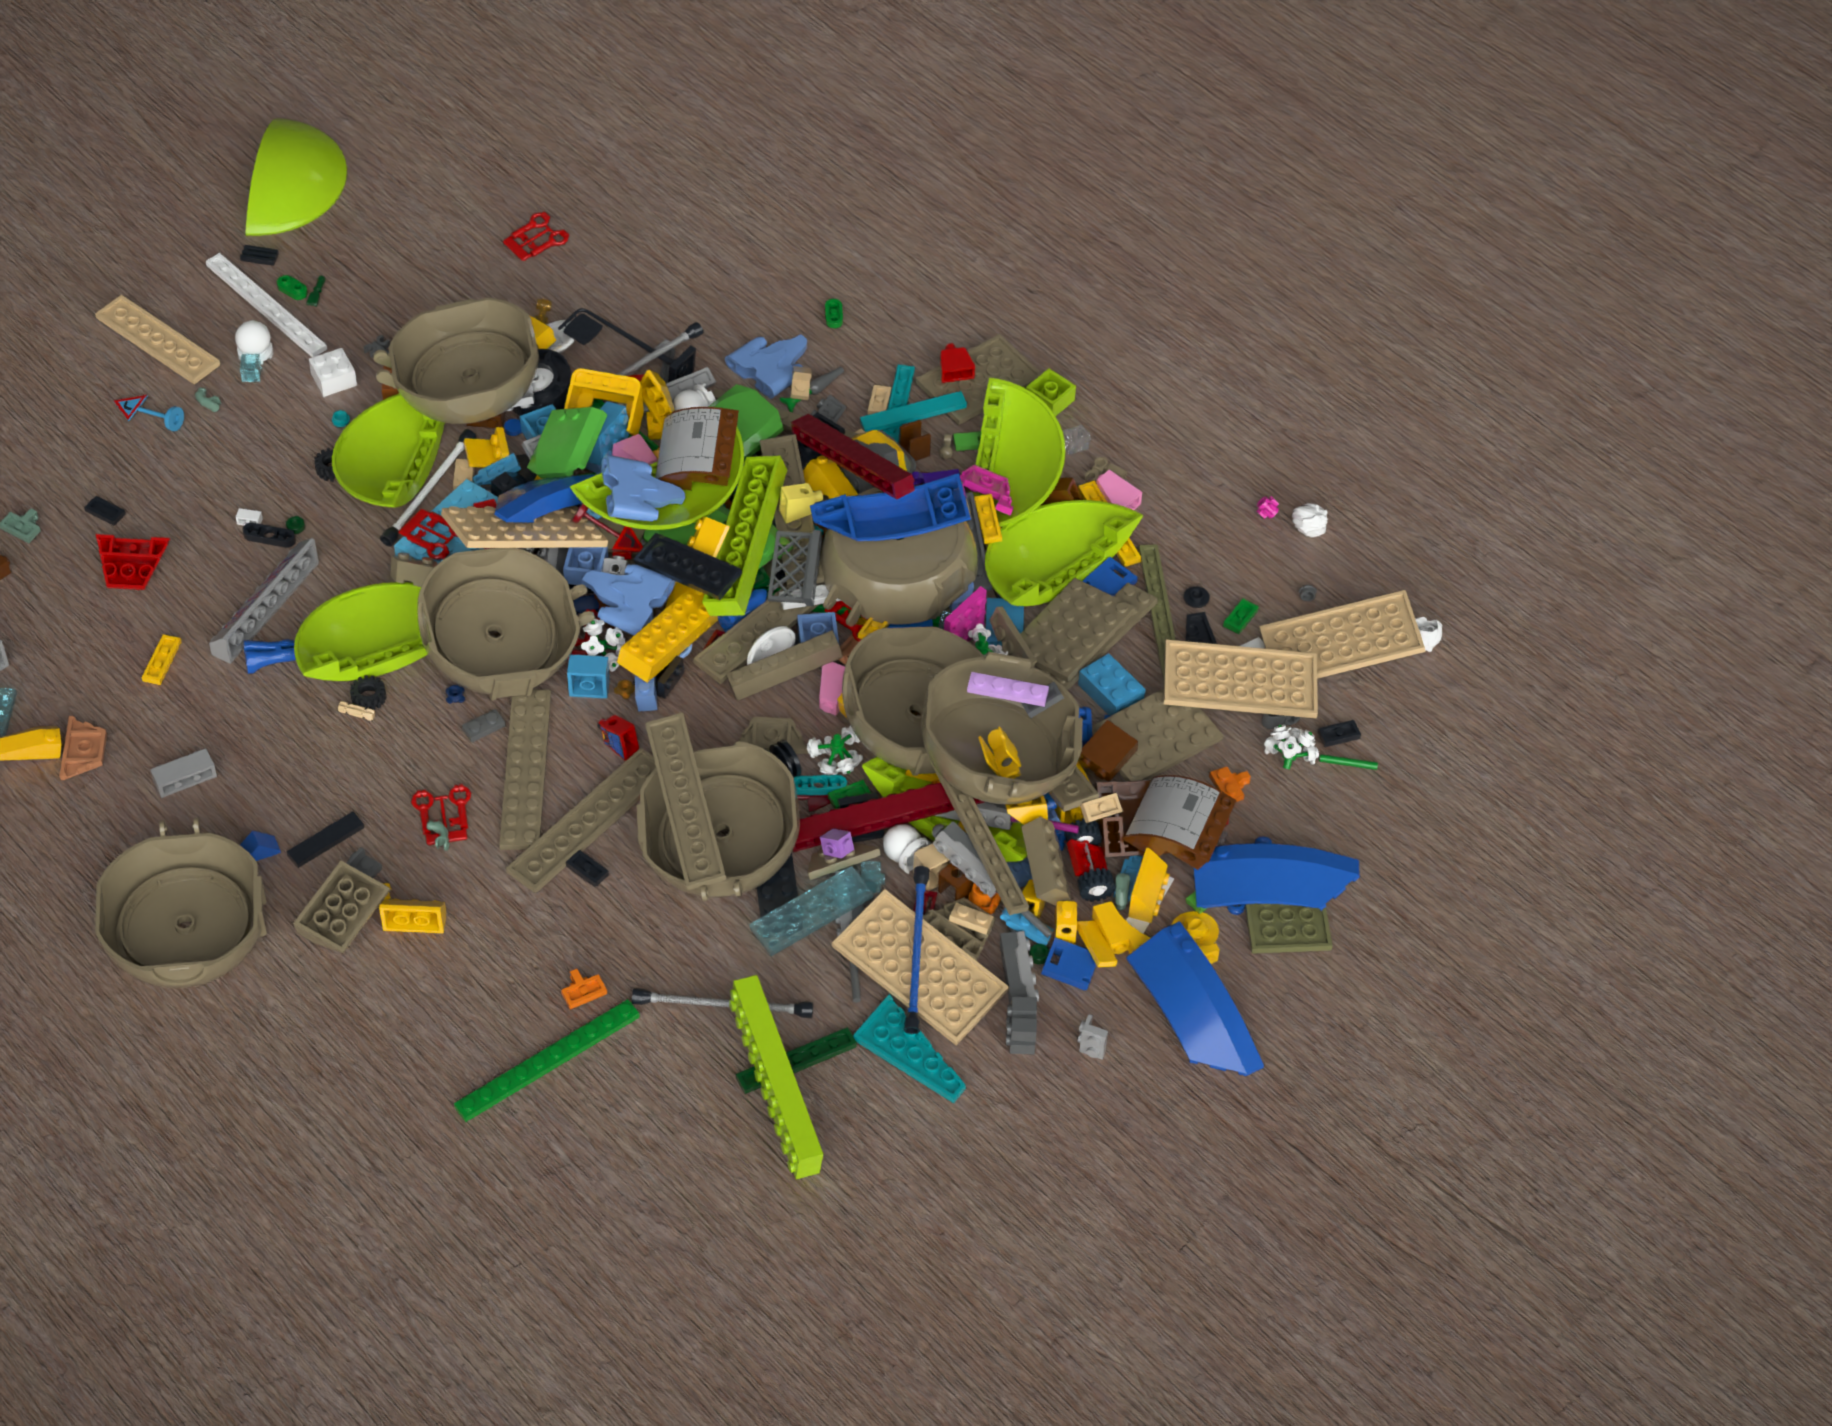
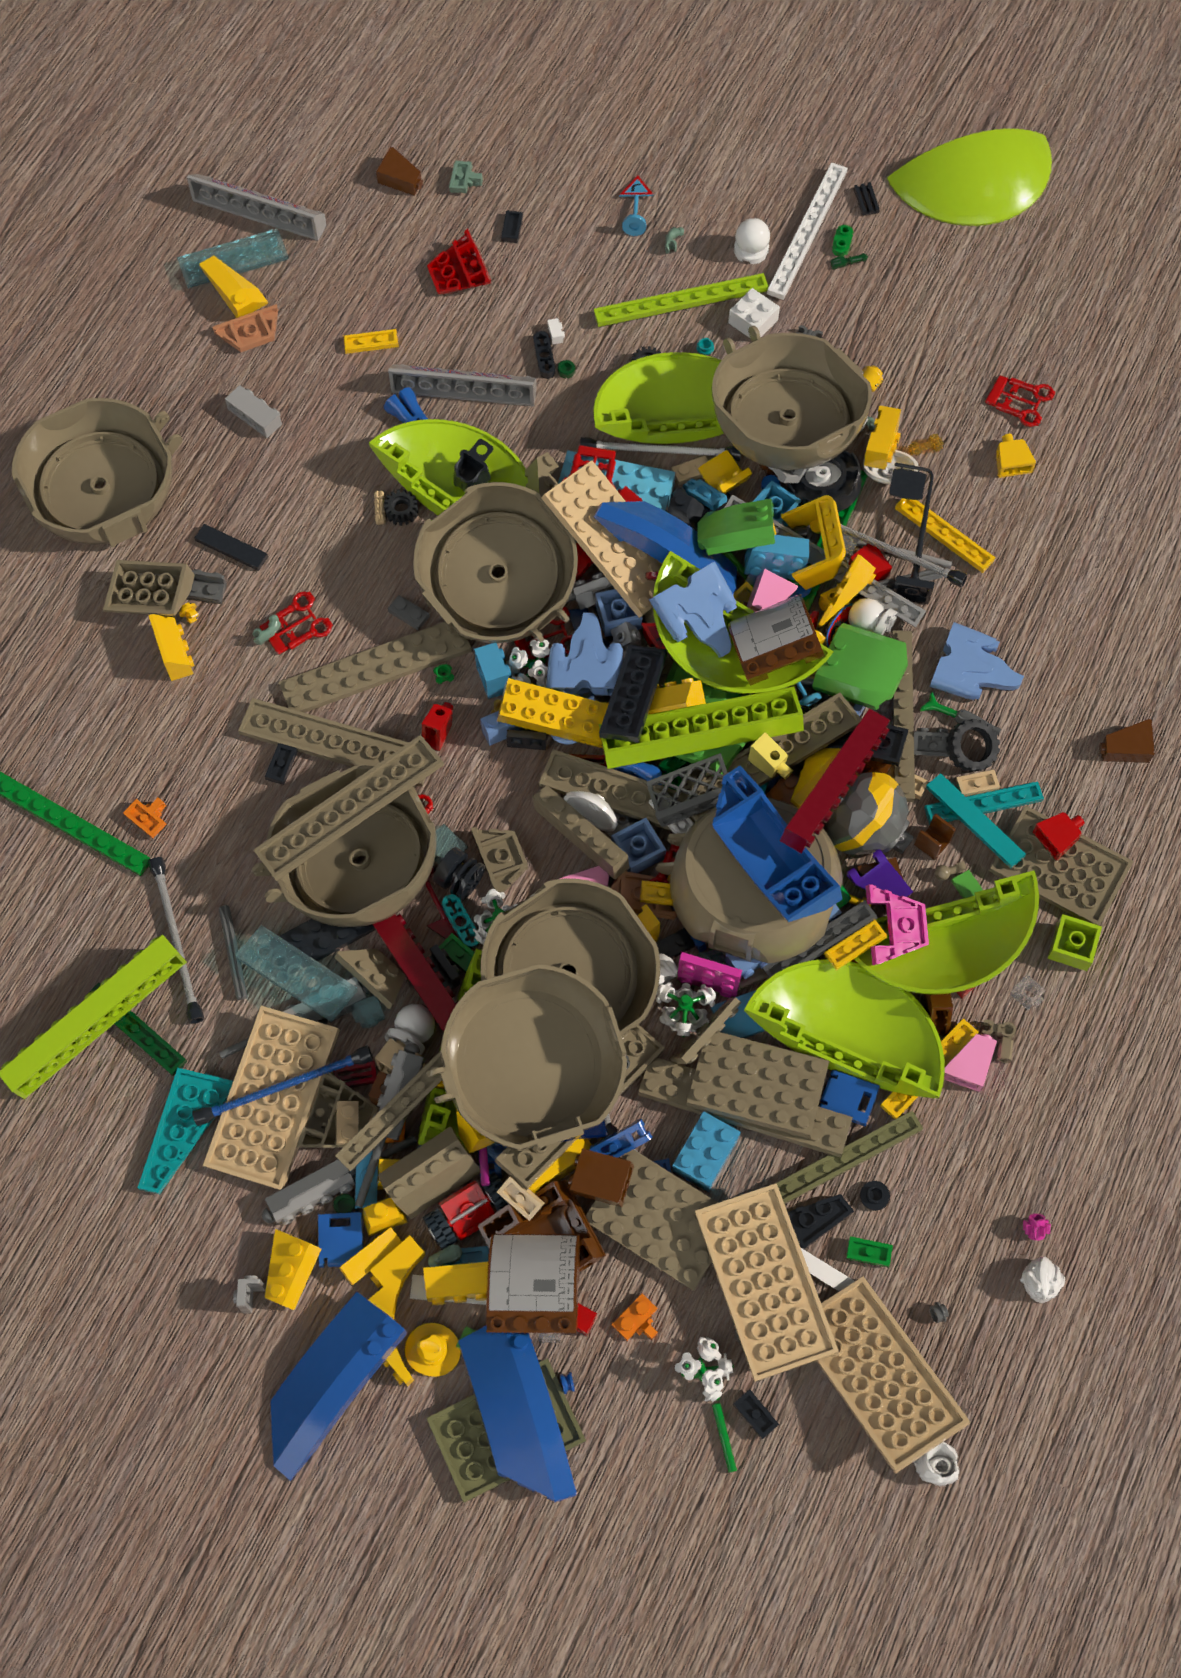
camera: 70 degrees right, 15 degrees up
(157, 339) = (721, 172): tan plate -> none
(250, 367) = (725, 253): clear light blue brick -> none
(260, 845) = (202, 502): blue slope -> none
(278, 418) = (679, 300): none -> lime plate
(370, 617) = (471, 467): none -> black piece
(564, 719) = (443, 669): none -> green plate
(591, 261) = (1013, 457): none -> yellow torso
(640, 330) = (947, 534): none -> yellow plate
(758, 964) = (232, 950): none -> dark grey axle
(800, 383) = (958, 700): tan slope -> none
(833, 313) = (1071, 696): green plate -> none
(837, 843) = (377, 963): medium lavender brick -> none
(842, 396) = (989, 737): none -> black tyre
(898, 295) = (1129, 744): none -> reddish brown slope
(1002, 749) = (505, 1071): yellow piece -> none
(1008, 689) = (576, 1044): lavender plate -> none
(1022, 1025) = (238, 1220): dark grey brick -> none
(1053, 697) = (585, 1083): dark grey plate -> none
(1078, 1000) = (289, 1268): none -> yellow wedge

